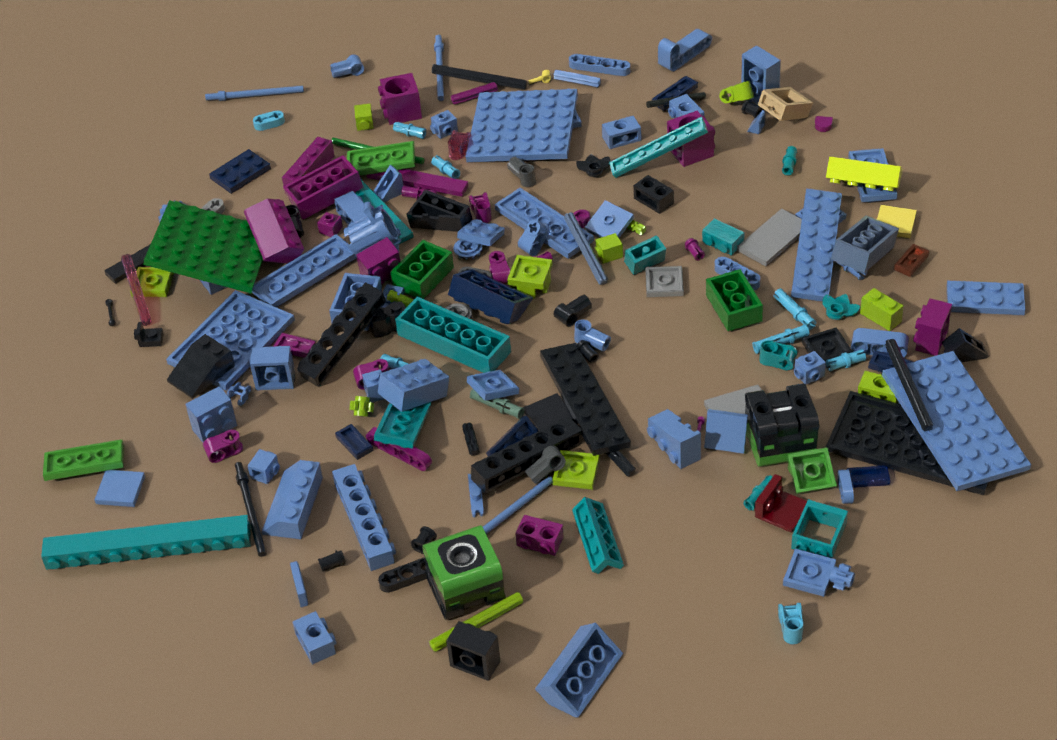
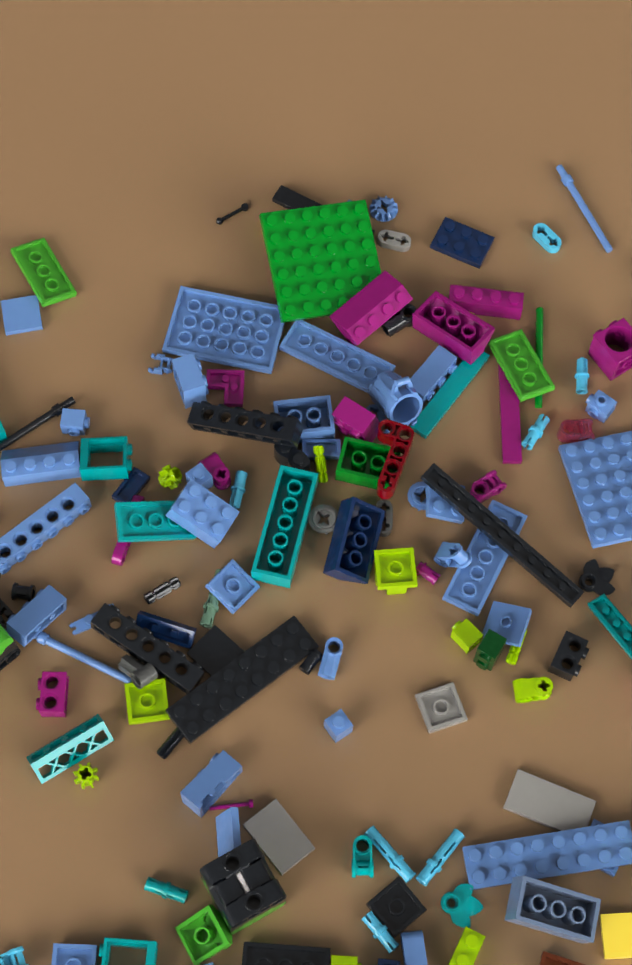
camera: 65 degrees right, 20 degrees up
(136, 290) = (255, 226): clear pink axle -> none
(148, 337) = (209, 258): black bracket -> none
(201, 366) = (172, 319): black slope -> none
(211, 414) = (115, 353): medium blue brick -> none
(220, 446) = (89, 378): magenta piece -> none
(318, 431) = (105, 445): none -> teal window
(330, 224) = (410, 354): magenta plate -> none
(363, 117) = (582, 324): lime brick -> none
(389, 185) = (484, 388): medium blue slope -> none
(413, 192) = (487, 420): magenta axle -> none
(431, 238) = (393, 461): none -> dark red beam
(438, 213) = (457, 448): black wedge -> none
(448, 520) = (36, 615): none -> medium blue brick
(498, 266) = (396, 538): magenta piece -> none
(523, 171) = (556, 509): dark grey piece -> none
(530, 201) = (502, 535): none -> black plate
(569, 313) = (359, 626): black piece -> none
(582, 217) = (509, 592): magenta tile -> none
(585, 248) = (454, 612): sand blue axle -> none
(630, 229) = (489, 650): none -> dark green brick
(630, 526) = (89, 779): none -> lime gear
(645, 255) = (462, 676): teal brick -> none
(655, 343) = (338, 725): none -> medium blue brick
(673, 220) = (529, 689): none -> lime piece
(692, 246) = (498, 724): magenta pin -> none
(722, 236) = (525, 749): teal brick -> none
(725, 265) = (477, 764): medium blue beam -> none
(734, 300) = (425, 788): green brick -> none
(779, 506) = (150, 917): dark red bracket -> none
(809, 367) = (352, 902): medium blue brick -> none

